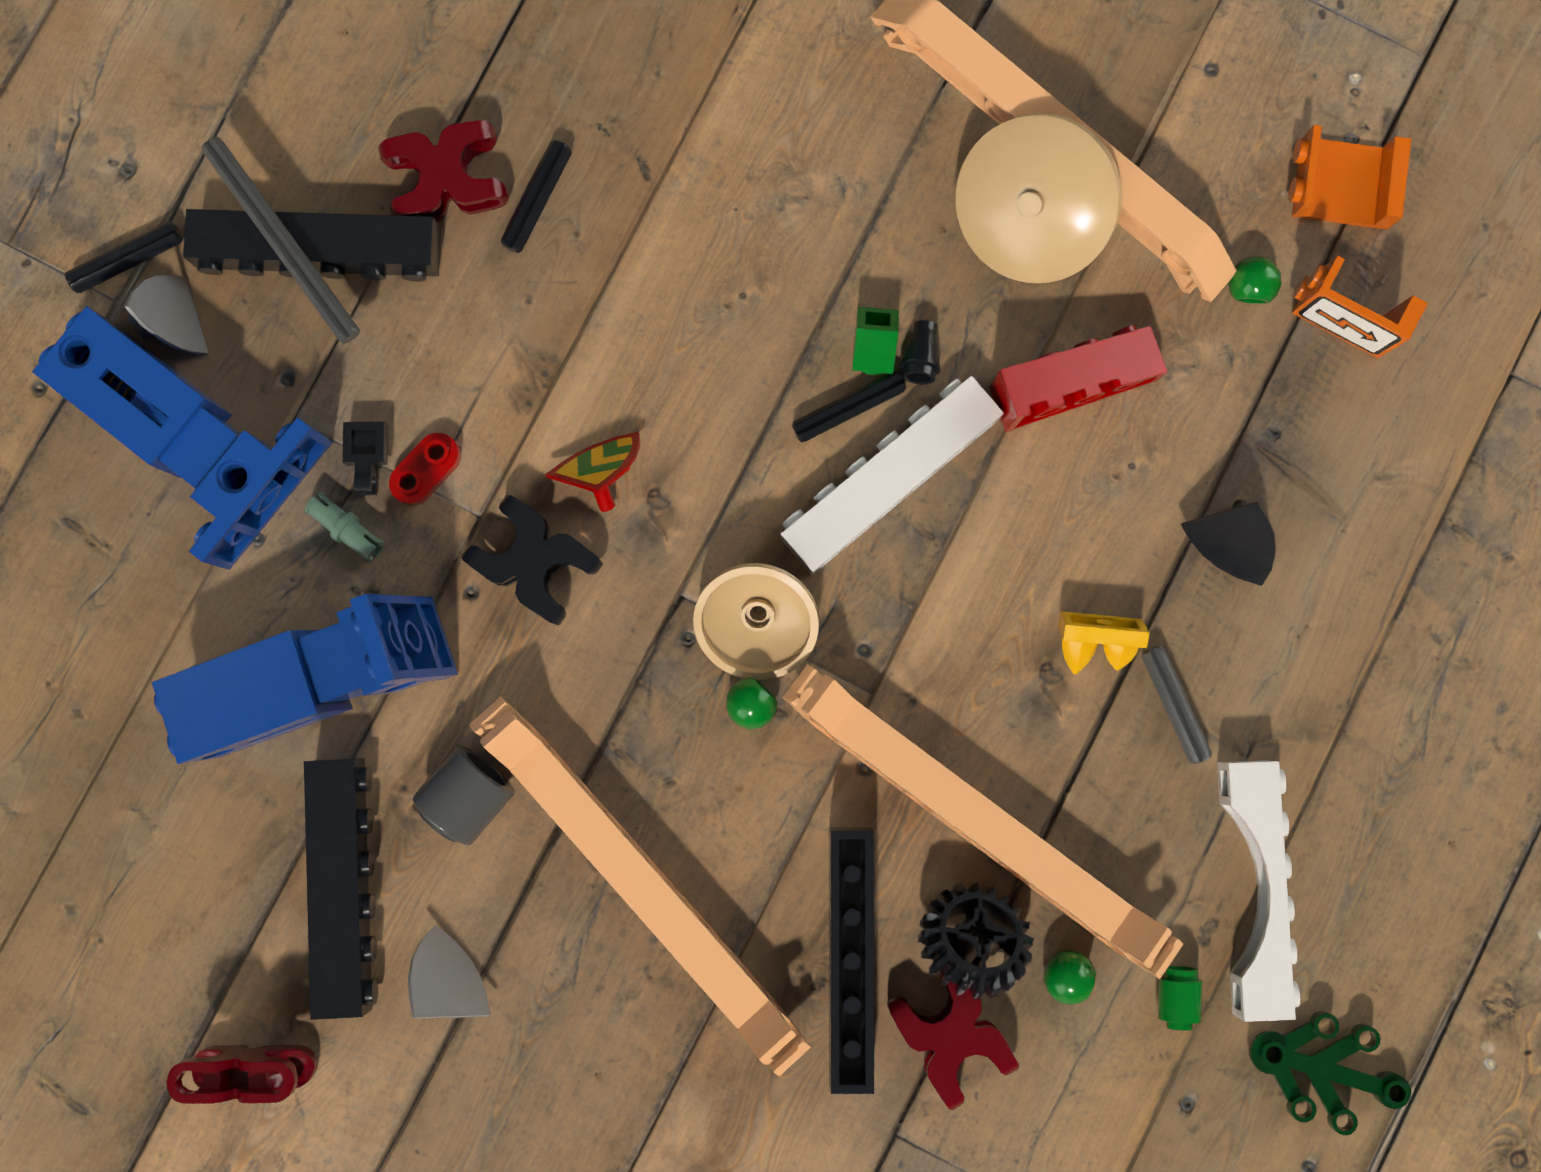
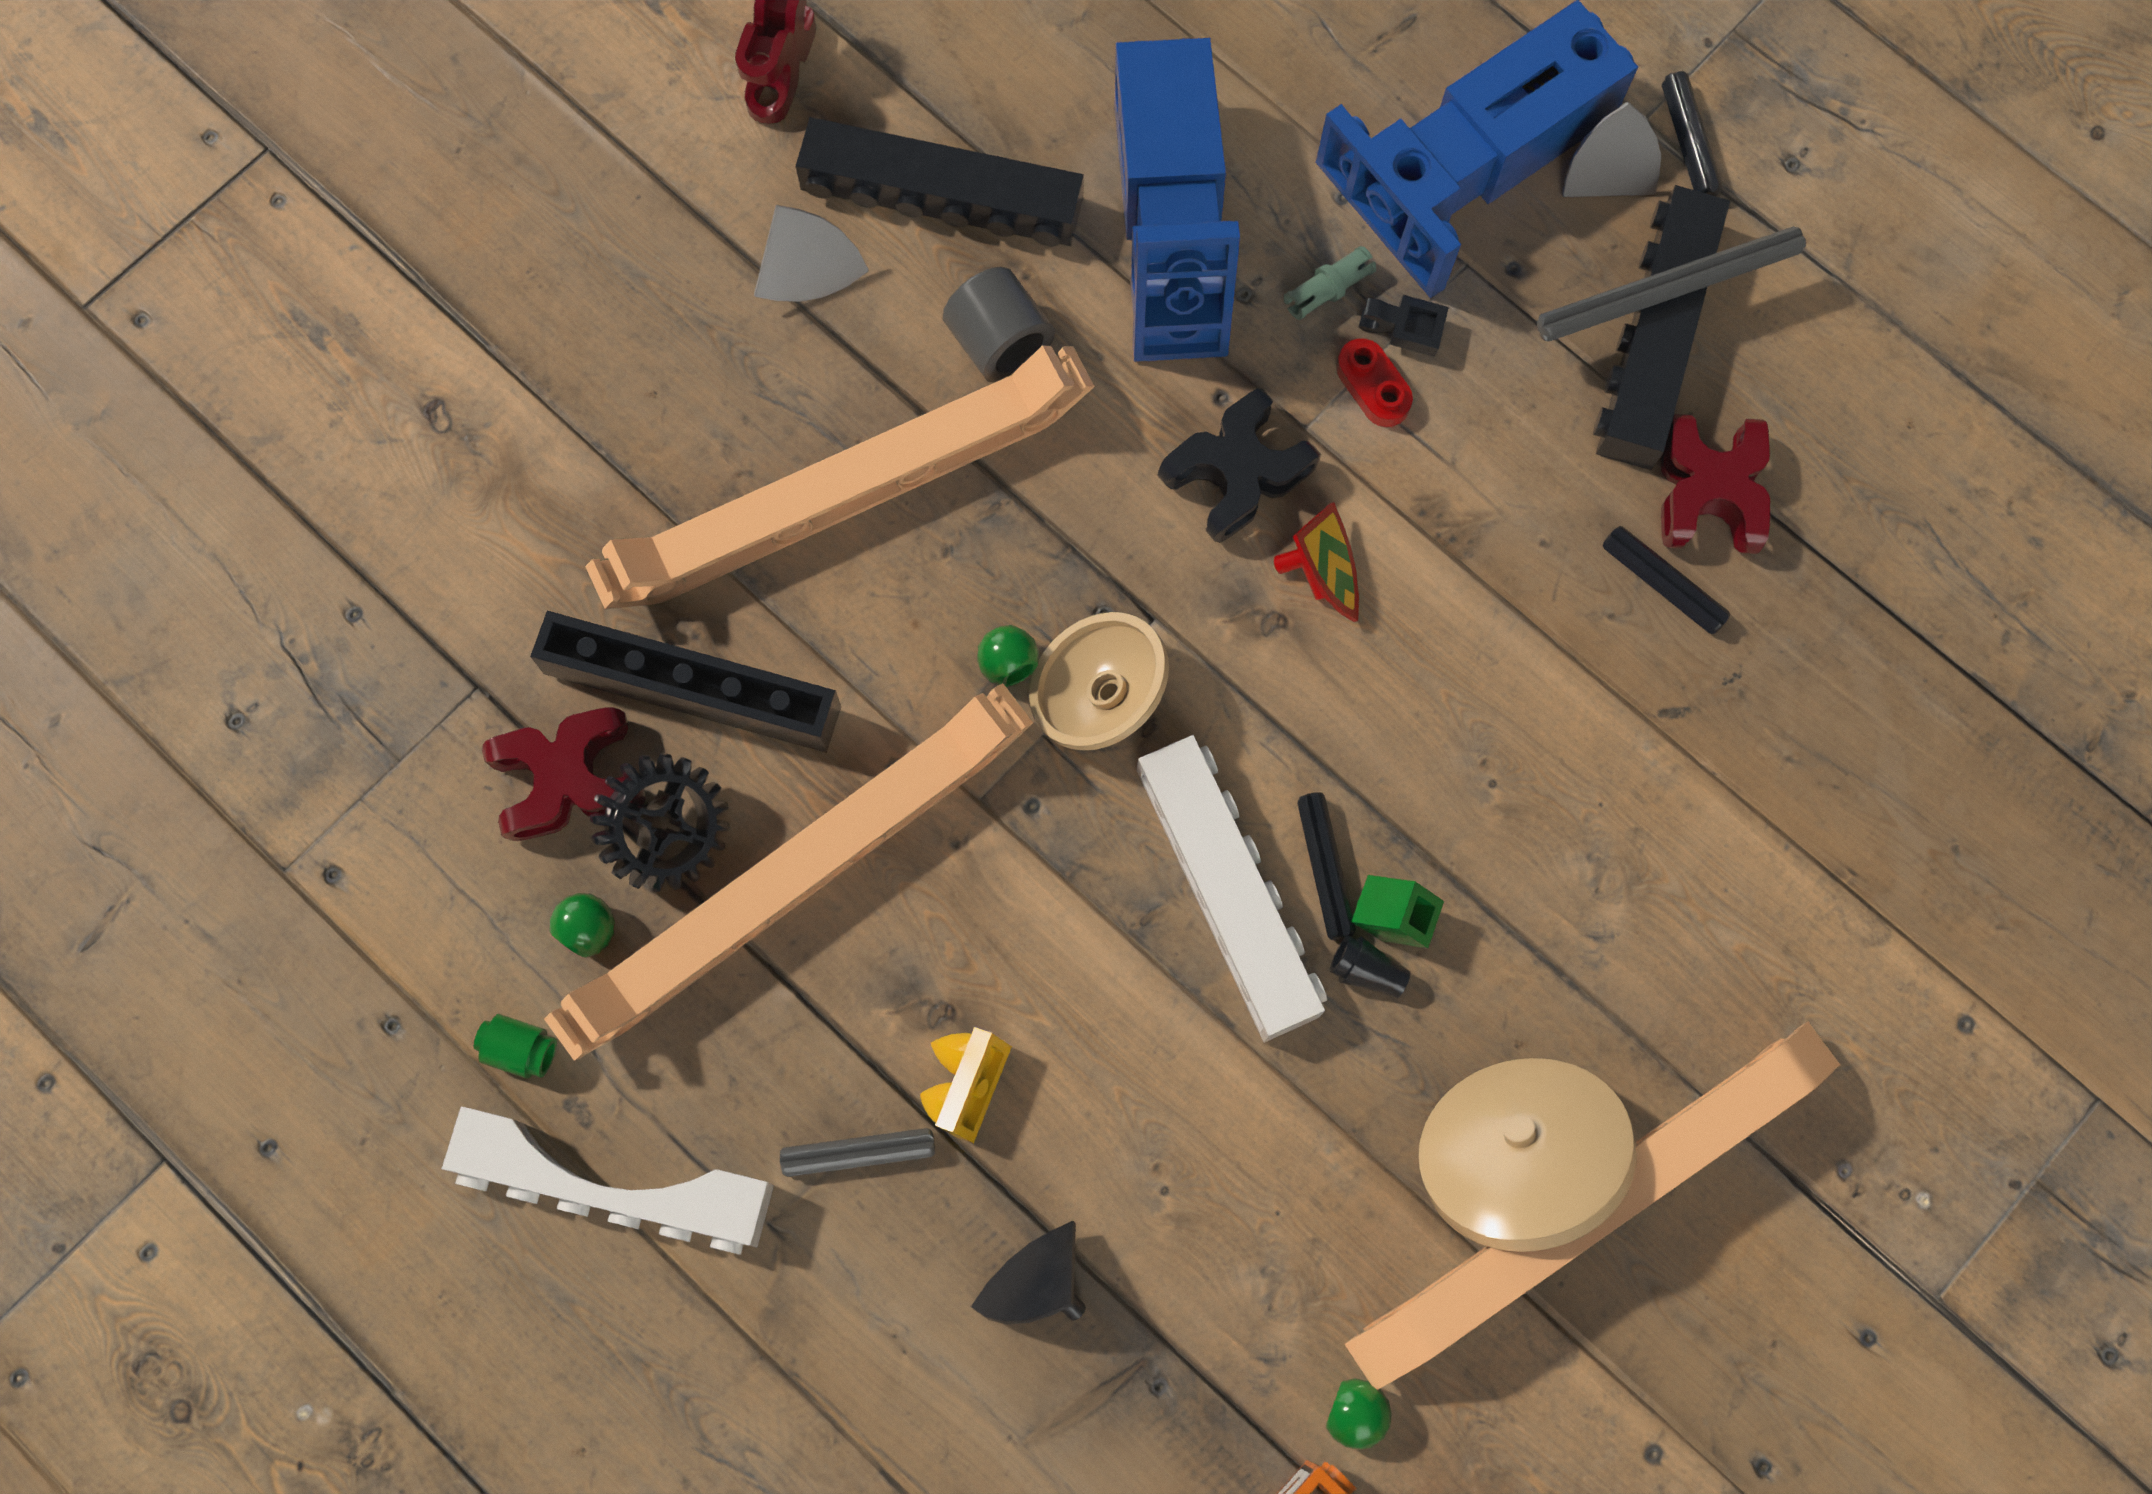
camera: 105 degrees right, 10 degrees down
(1077, 376) = (1291, 1143): red wedge -> none
(1321, 1069) = (373, 1196): dark green plant -> none

